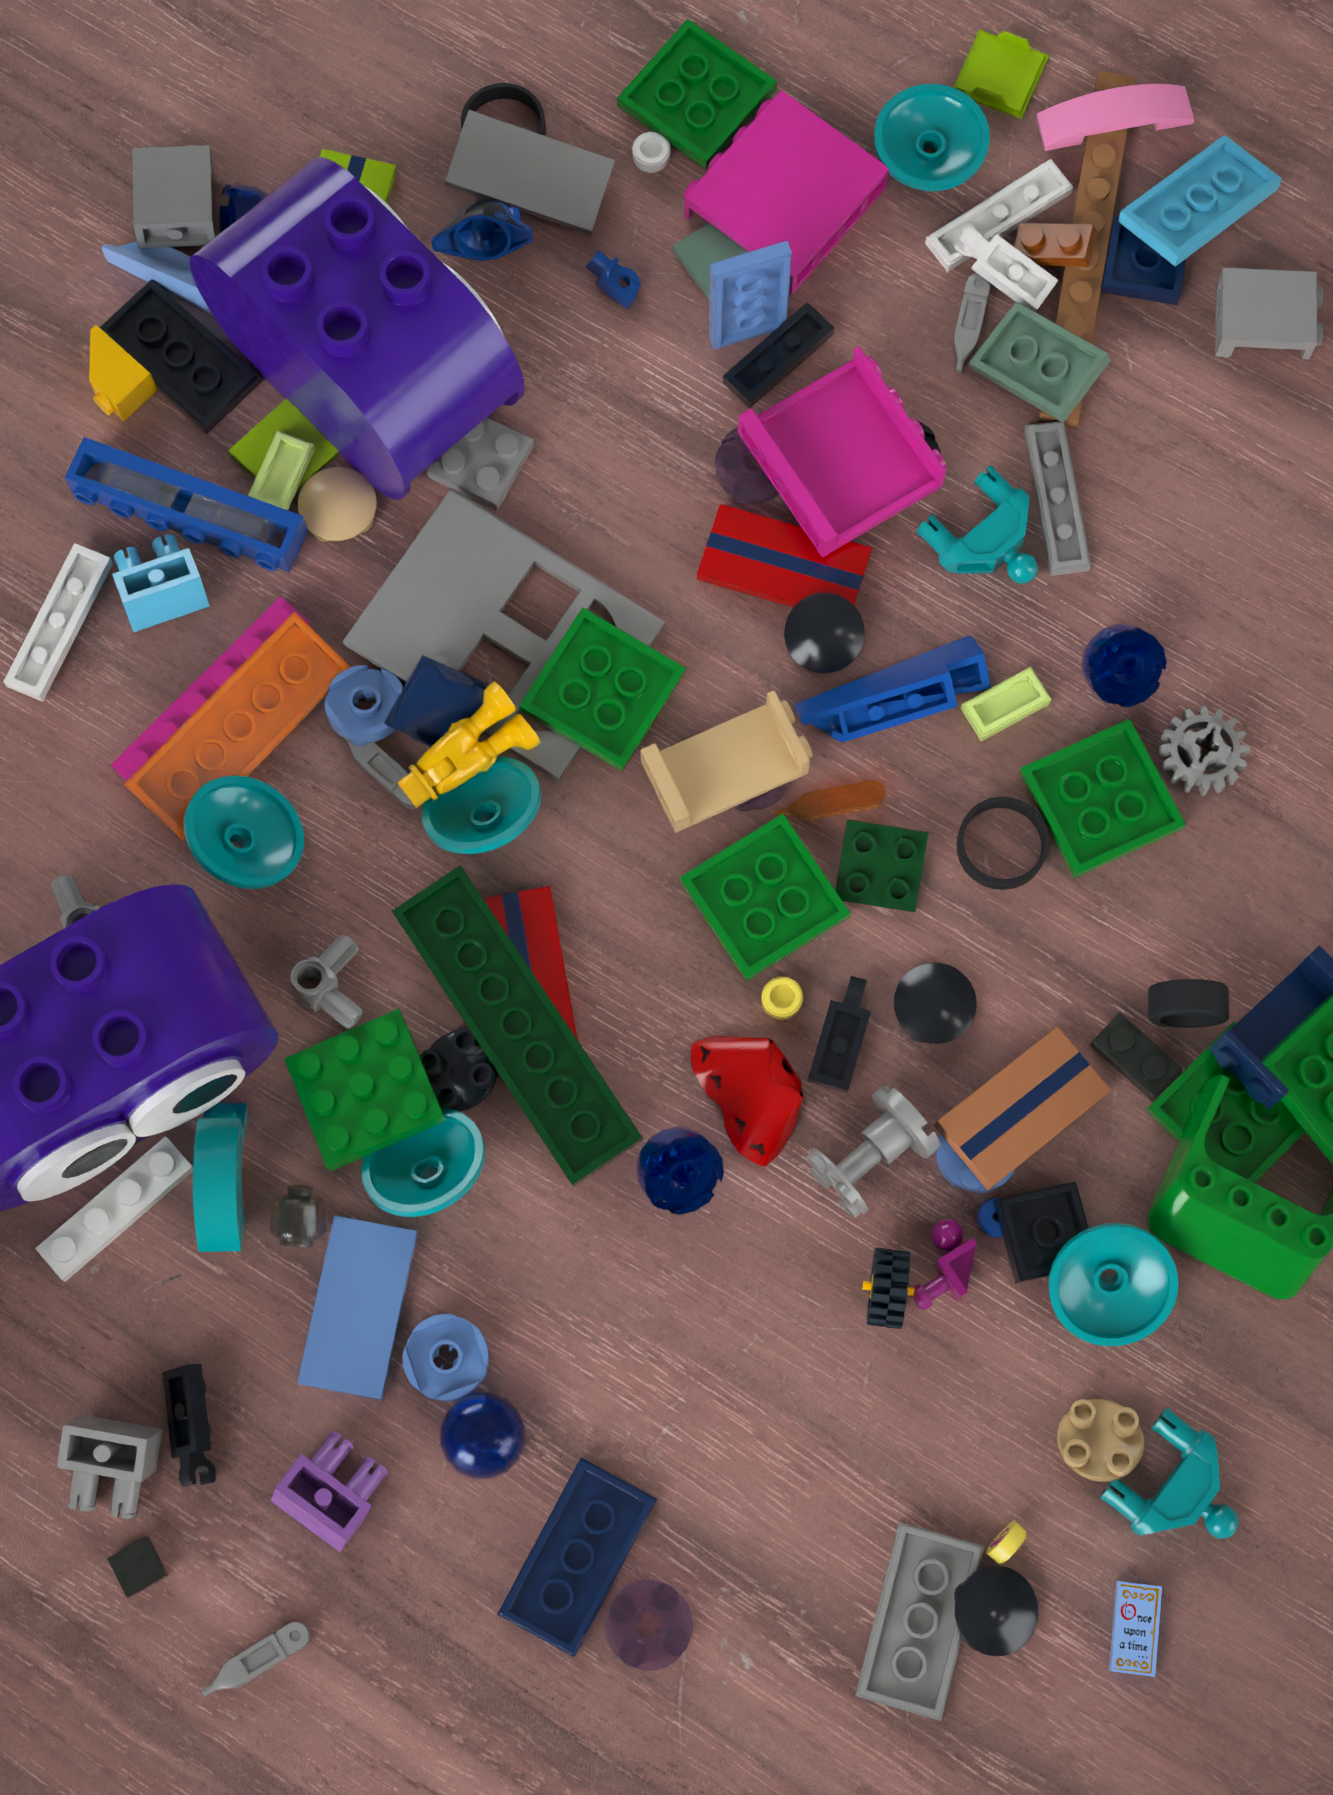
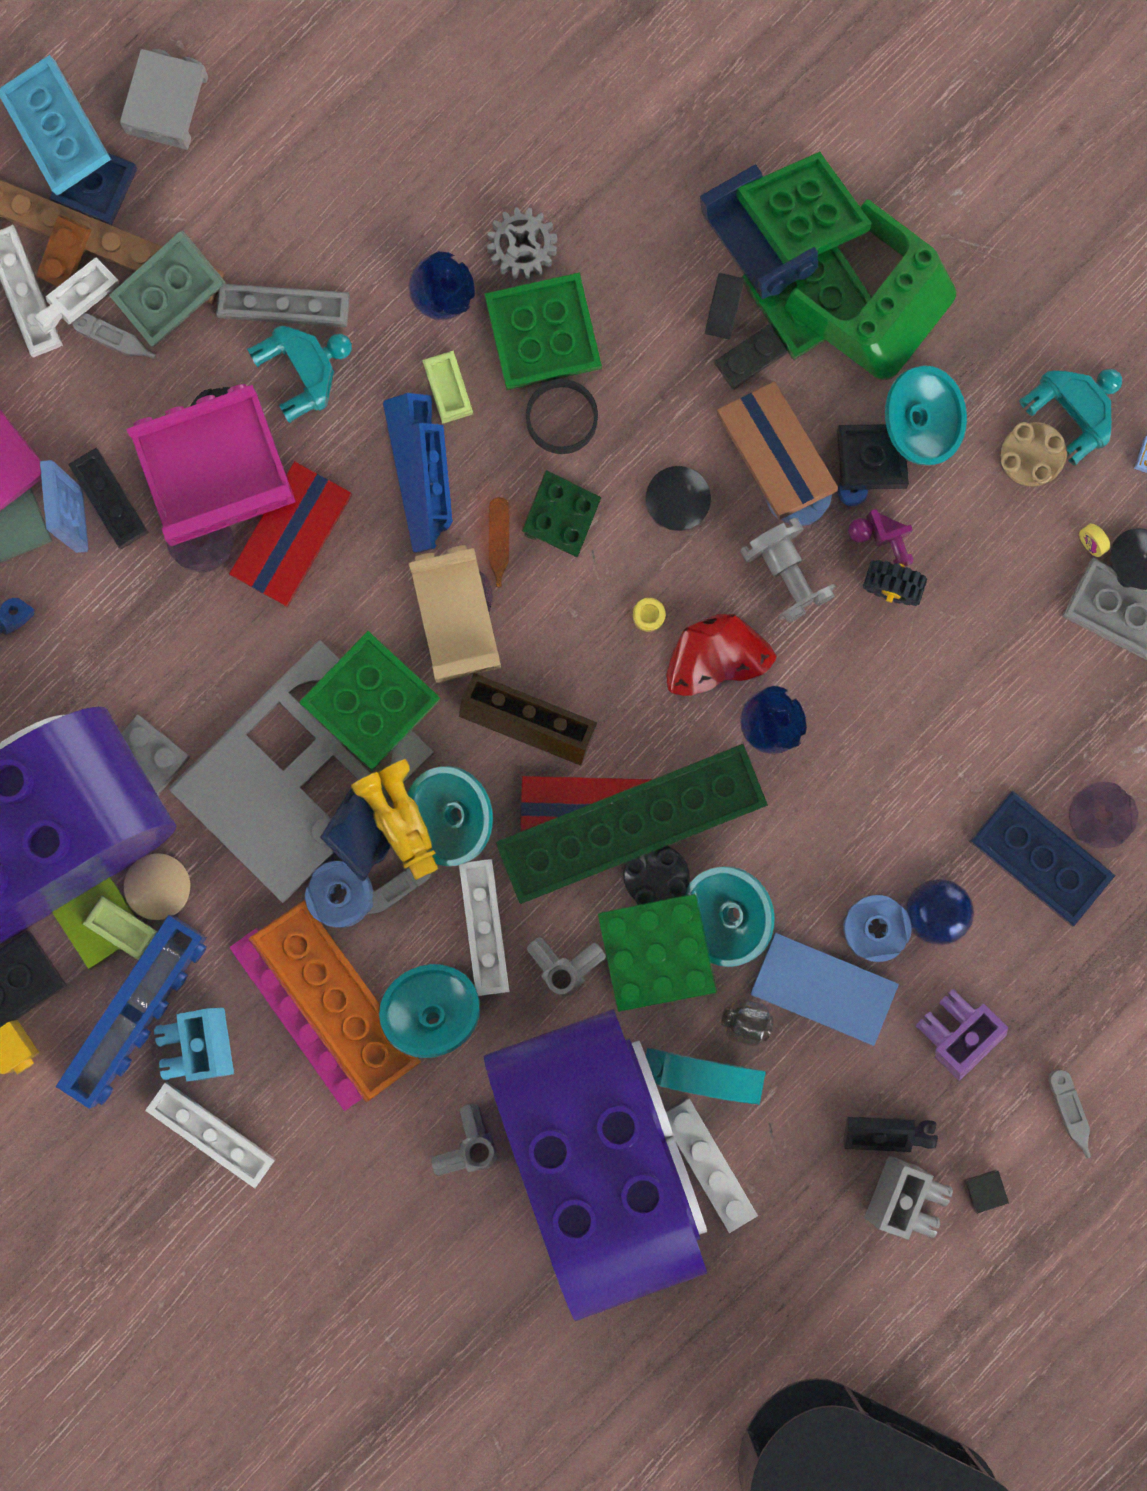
camera: 85 degrees left, 10 degrees up
(357, 879) = (484, 927): none -> white plate
(618, 874) = (527, 719): none -> dark brown brick
(764, 897) = (567, 609): green plate -> none
(824, 633) = (359, 515): black dish -> none
(840, 1040) = (692, 576): black plate -> none

